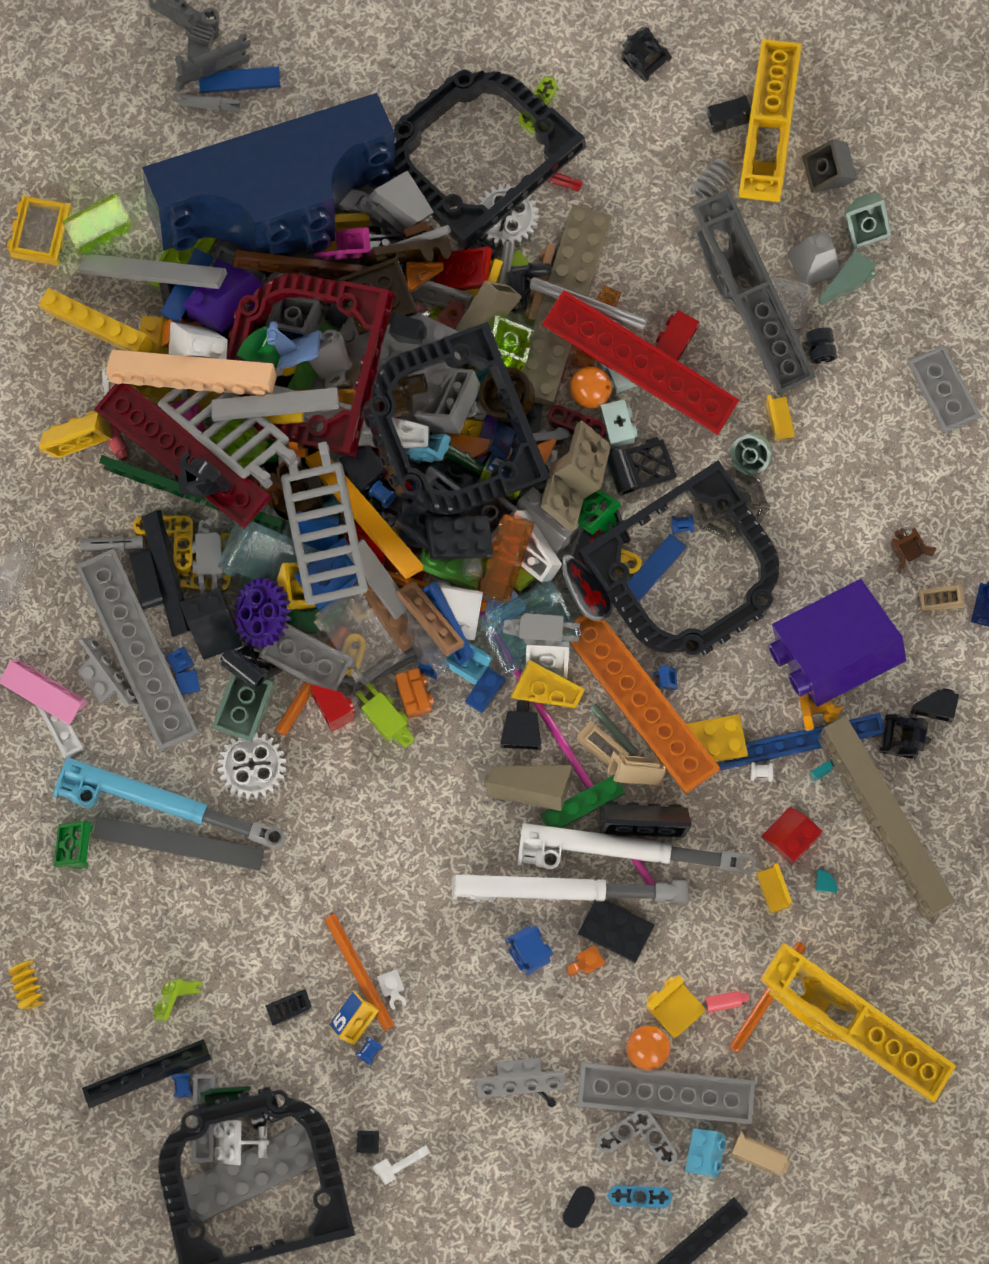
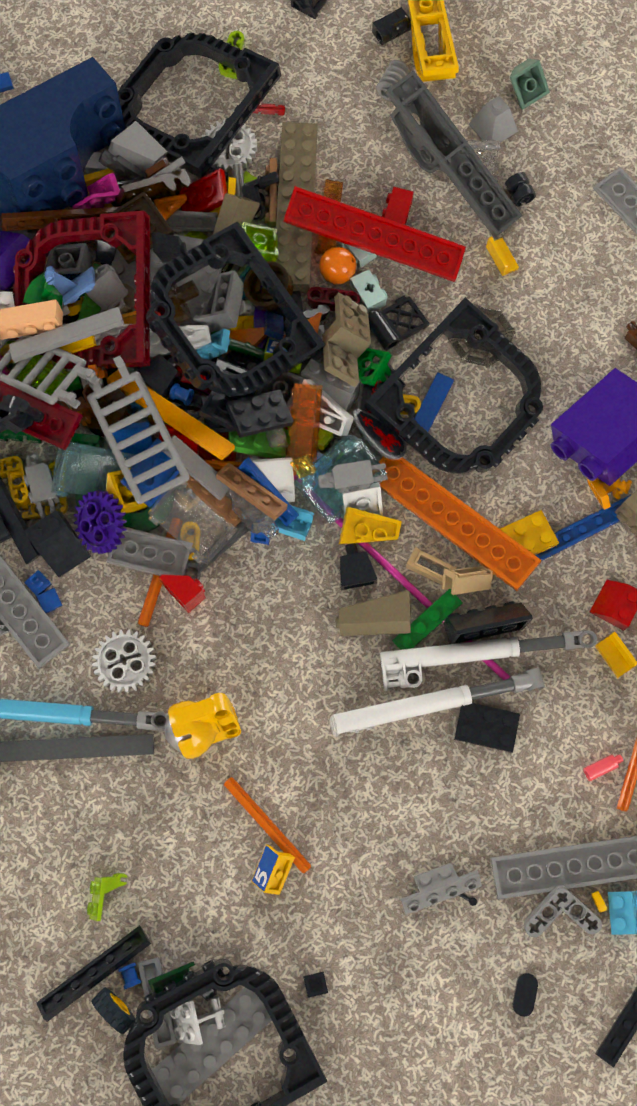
camera: 15 degrees left, 0 degrees up
(158, 1112) = (113, 1010): none -> black wheel
(243, 708) = (104, 608): sand green slope -> none
(248, 669) = (101, 575): black piece -> none
(293, 997) = (226, 866): black slope -> none
(316, 850) = (198, 725): none -> yellow piece
(369, 1050) = (294, 897): blue bush -> none
(385, 717) = (232, 588): lime hinge -> none
(387, 1171) = (340, 1007): white brick -> none
(391, 986) = (299, 830): white plate -> none
(413, 692) = (252, 560): orange brick -> none
(448, 320) = (204, 226): clear red brick -> none
(485, 690) = (314, 543): blue plate -> none
(492, 605) = (303, 466): none -> clear yellow plate
(529, 950) = (416, 765): blue brick -> none
(588, 960) = (469, 761): orange plate -> none
(608, 310) = (349, 199): light grey axle -> none
(613, 729) = (435, 550): sand green piece -> none
(648, 1047) = (547, 828): orange piece -> none
(656, 1203) = (591, 961): dark azure beam -> none
(668, 678) = (470, 493): blue tile -> none
(674, 1006) = (559, 784): yellow bracket -> none
(681, 1135) = (599, 902): none -> yellow tile
(682, 524) = (446, 361): blue bush -> none
(751, 453) = (488, 288): sand green cylinder -> none
(761, 771) = (574, 555): white bush -> none
(821, 771) = (626, 541): teal tile -> none
(829, 166) = (484, 48): dark grey slope -> none
(851, 277) = (528, 130): sand green slope -> none

